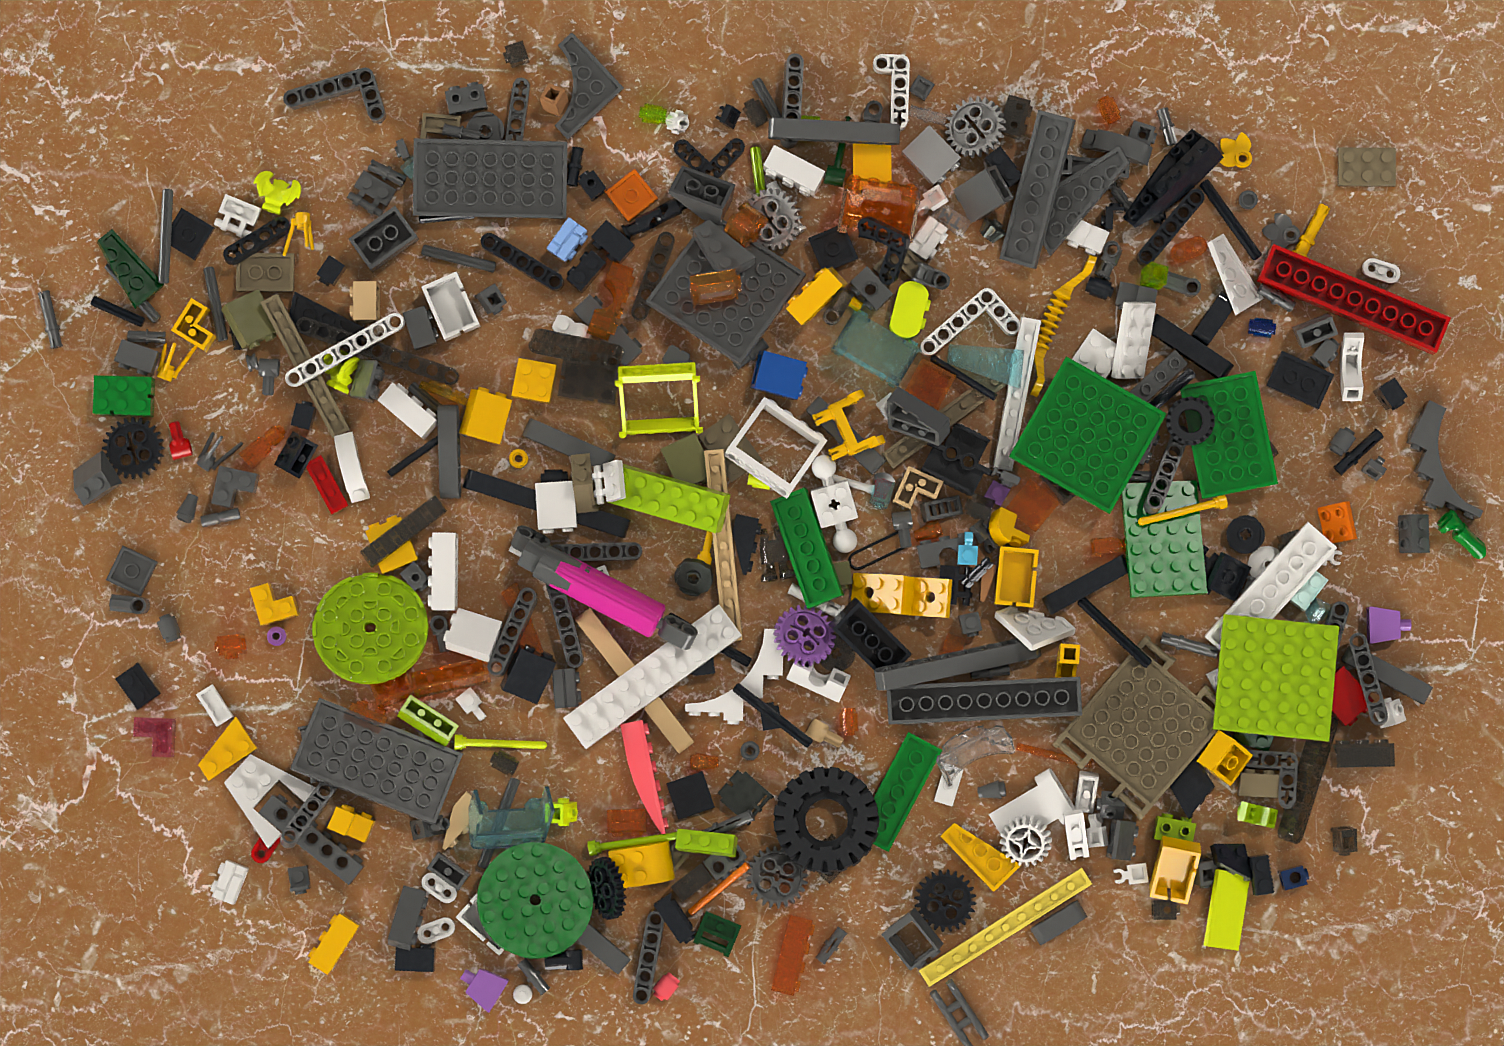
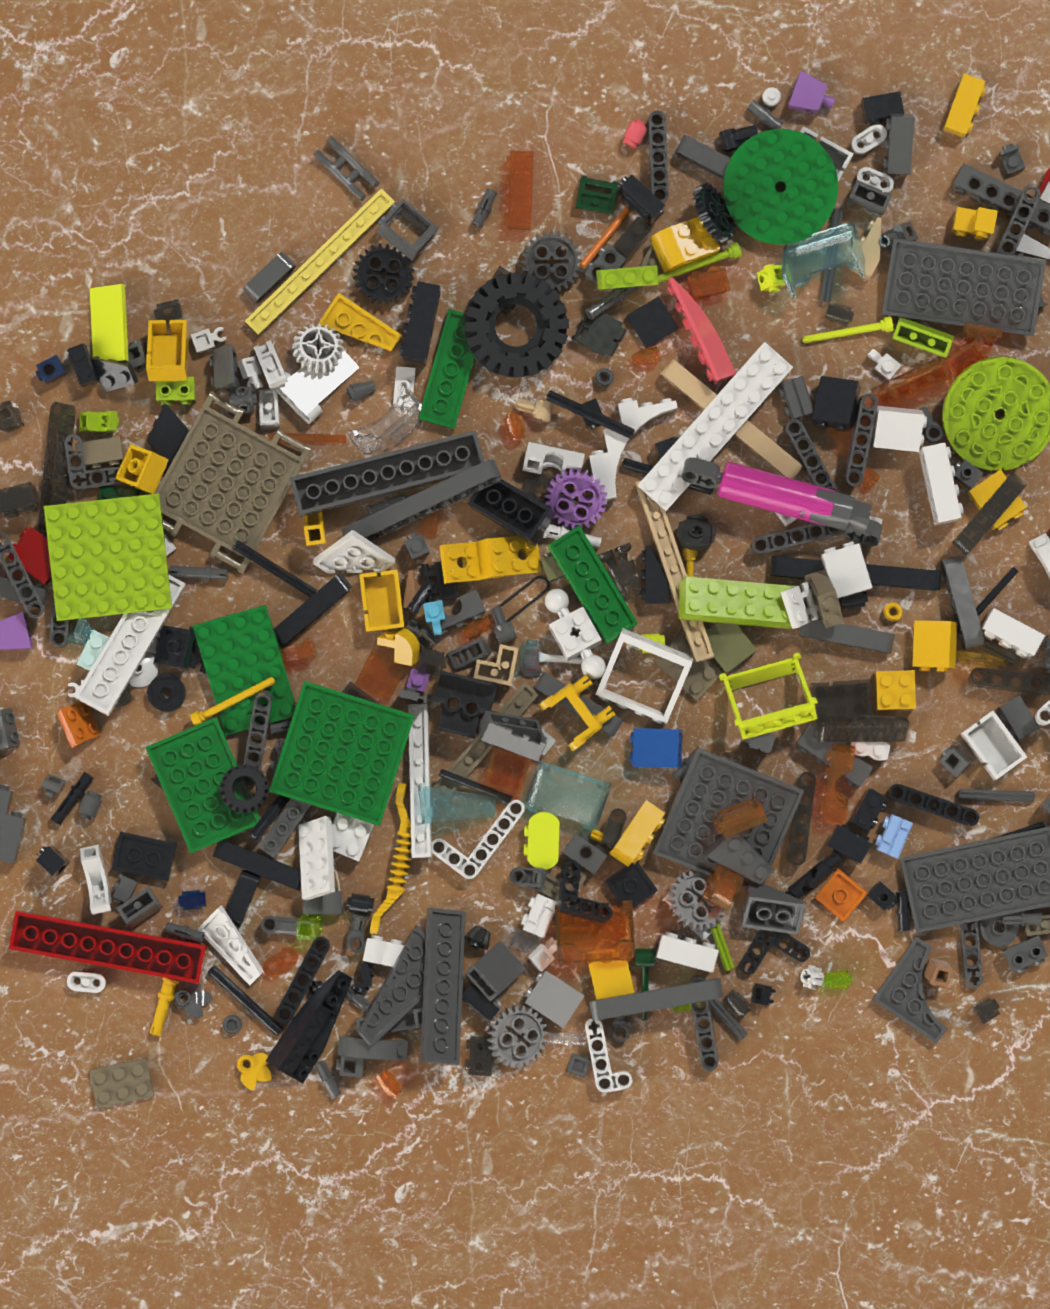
camera: 170 degrees right, 0 degrees up
(919, 842) = (421, 323): none -> black brick

